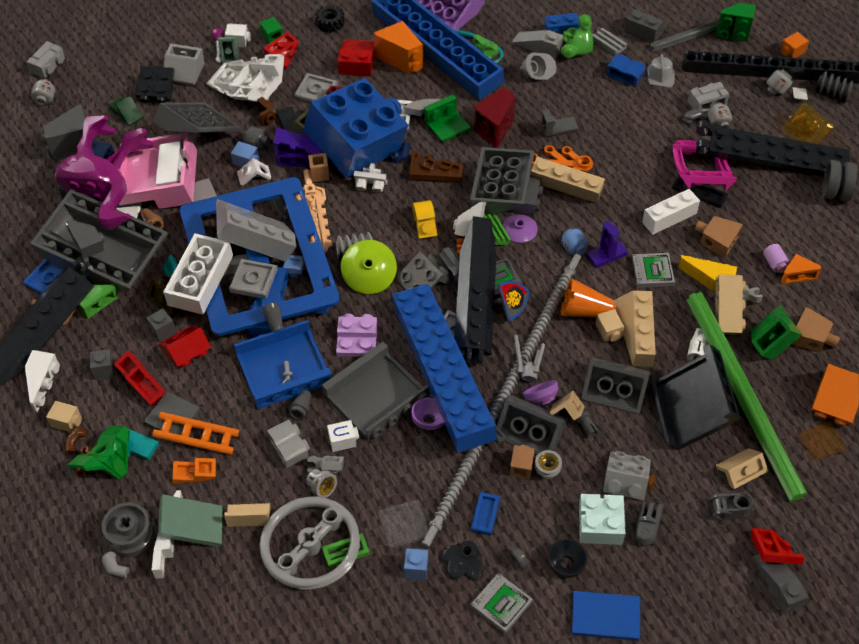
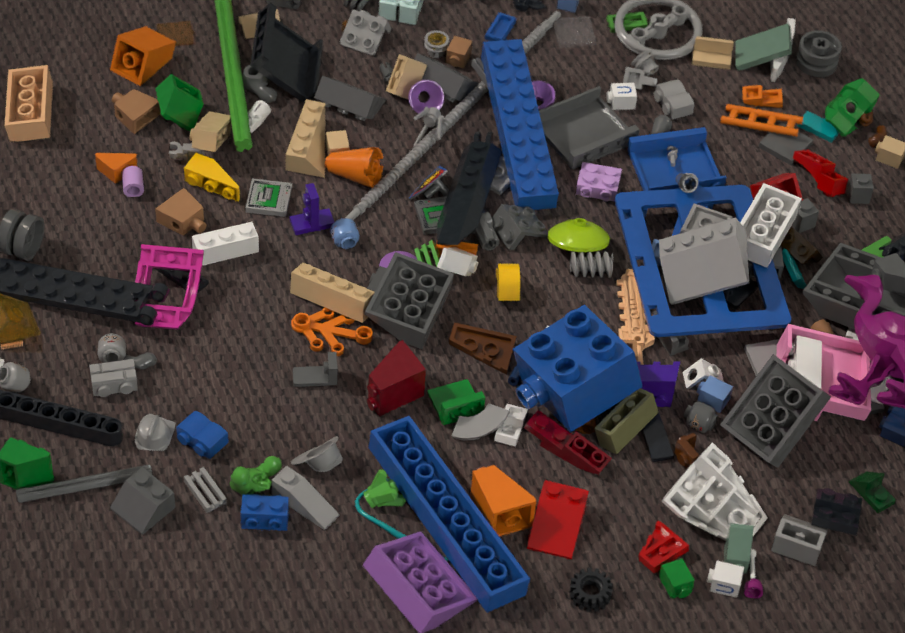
camera: 175 degrees left, 5 degrees down
(313, 87) = (619, 483): light grey tile -> none

